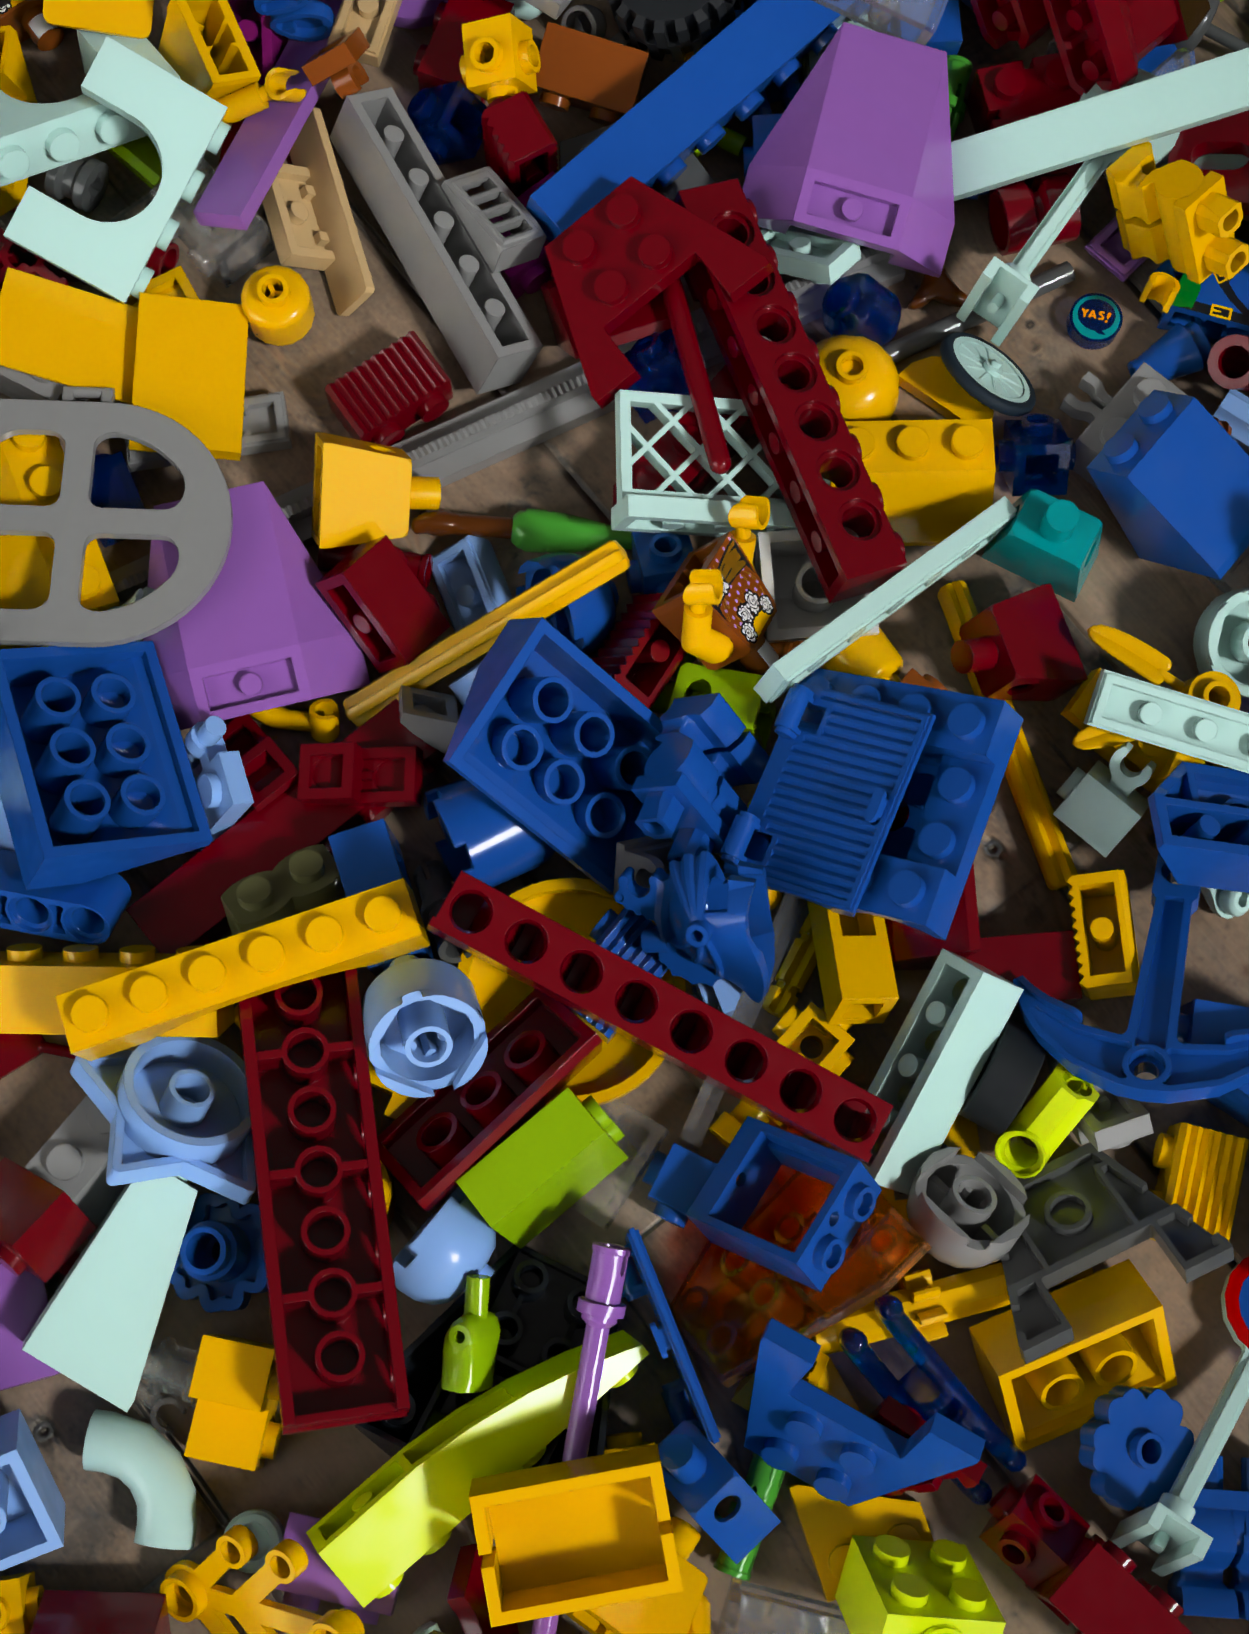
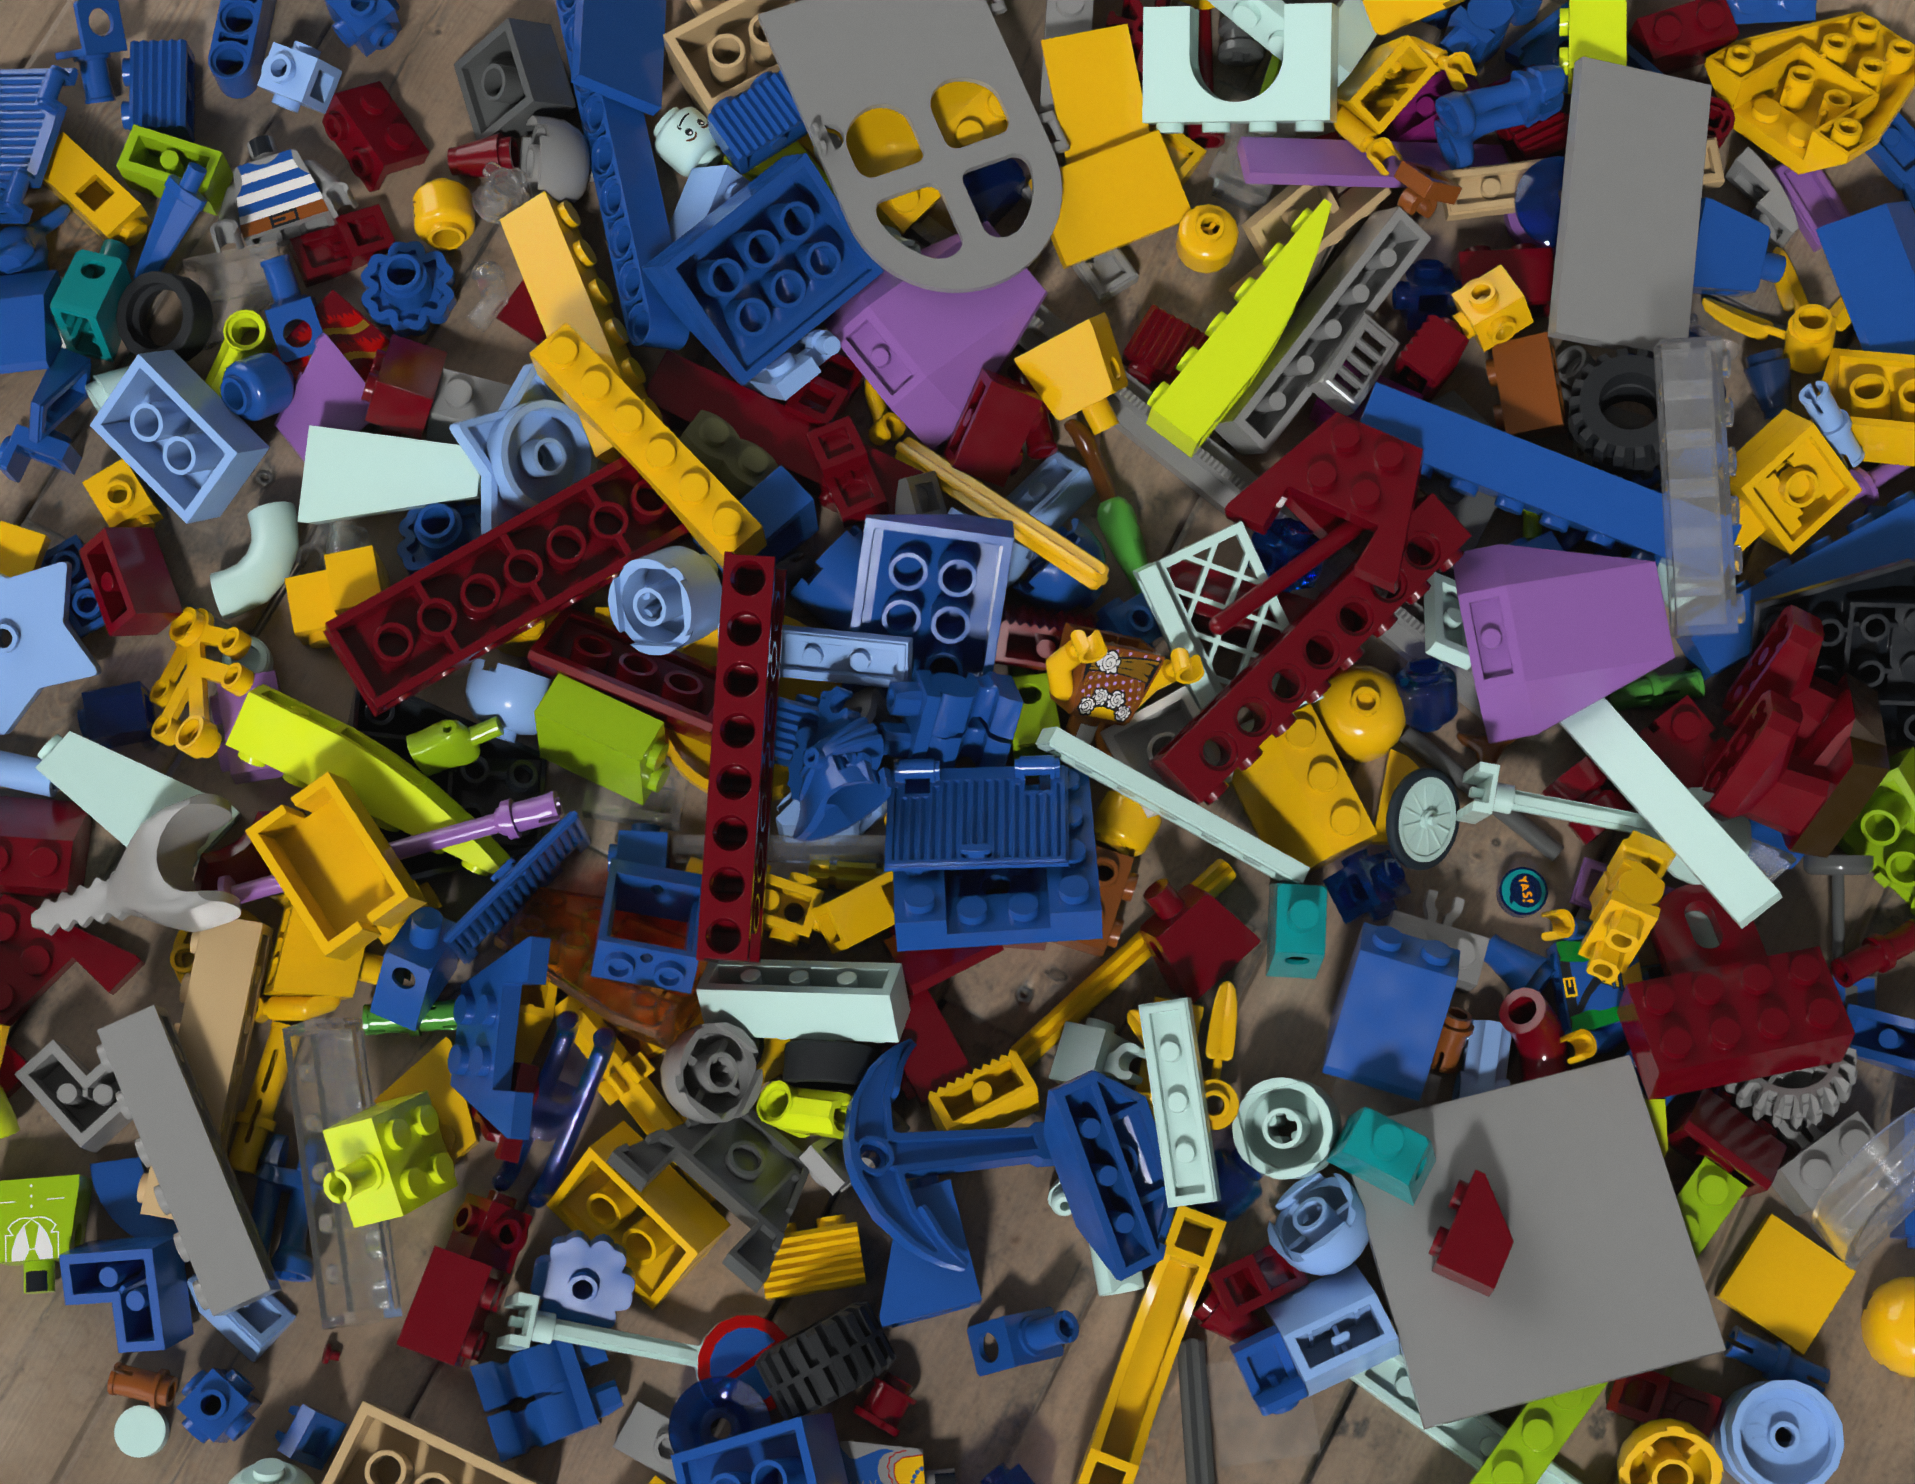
camera: 65 degrees right, 0 degrees up
(413, 312) = (1237, 342): none -> neon yellow slope
(569, 873) = (845, 656): none -> light blue tile

